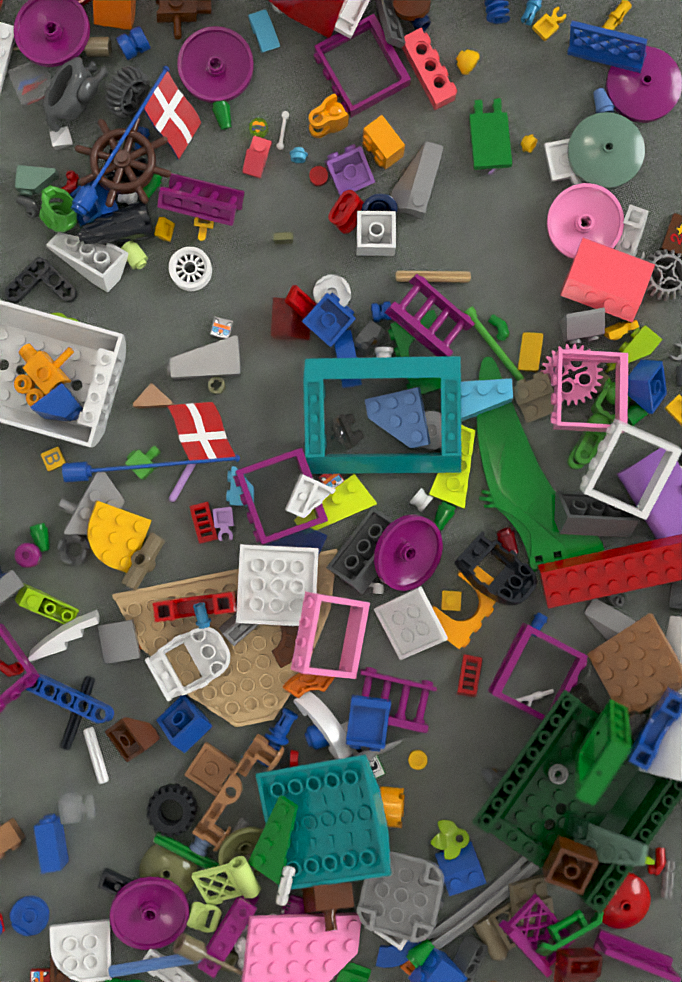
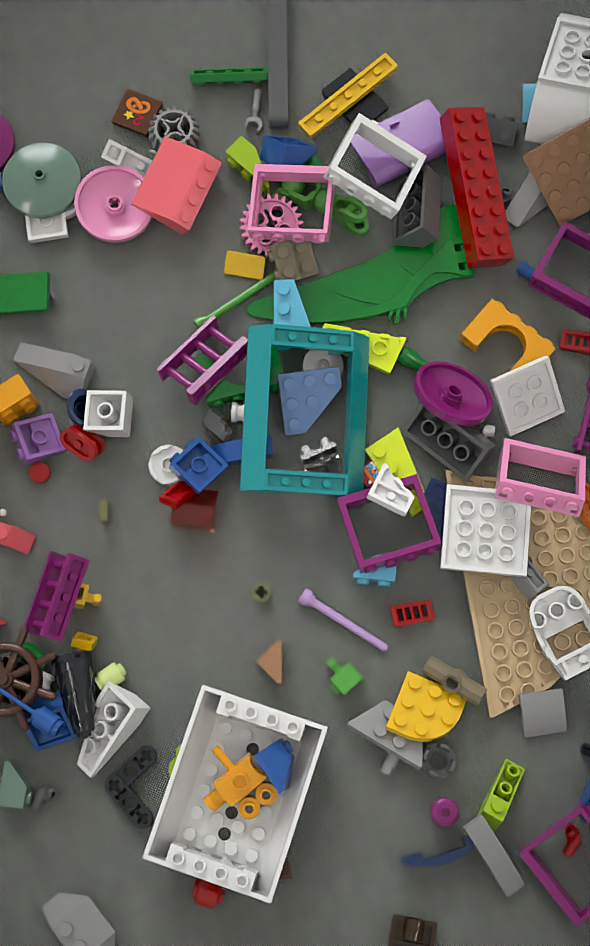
camera: 75 degrees left, 10 degrees down
(40, 536) = (421, 798): green cone -> none
(53, 459) = (334, 780): yellow tile -> none
(57, 215) = (58, 760): bright green helmet -> none
(58, 639) = (540, 782): white slope -> none
(72, 181) = (25, 746): red arm -> none
(183, 253) = (116, 603): white wheel -> none
(183, 607) = (510, 646): red arch -> none
(199, 433) = (315, 610): flag -> none
(201, 615) = (515, 614): dark azure pin -> none
(209, 361) = (234, 595): light grey slope -> none
(221, 328) = (198, 584): tile -> none
(223, 519) = (410, 590): lavender plate -> none
(285, 650) = (550, 524): reddish brown tile -> none
(298, 155) = (15, 492): medium azure plate -> none
(378, 311) = (192, 413): blue wheel -> none
(421, 500) = (395, 381): white wheel -> none
(435, 276) = (158, 357): tan axle -> none
(451, 600) = (502, 357): yellow plate -> none
(501, 325) = (215, 293): green arm -> none
(507, 538) = (441, 297): dark red cone -> none
(512, 584) = (485, 288): black slope -> none
(528, 143) = (26, 257): yellow plate -> none
(583, 326) = (222, 213): light grey slope -> none
(617, 330) = (228, 179): yellow plate -> none

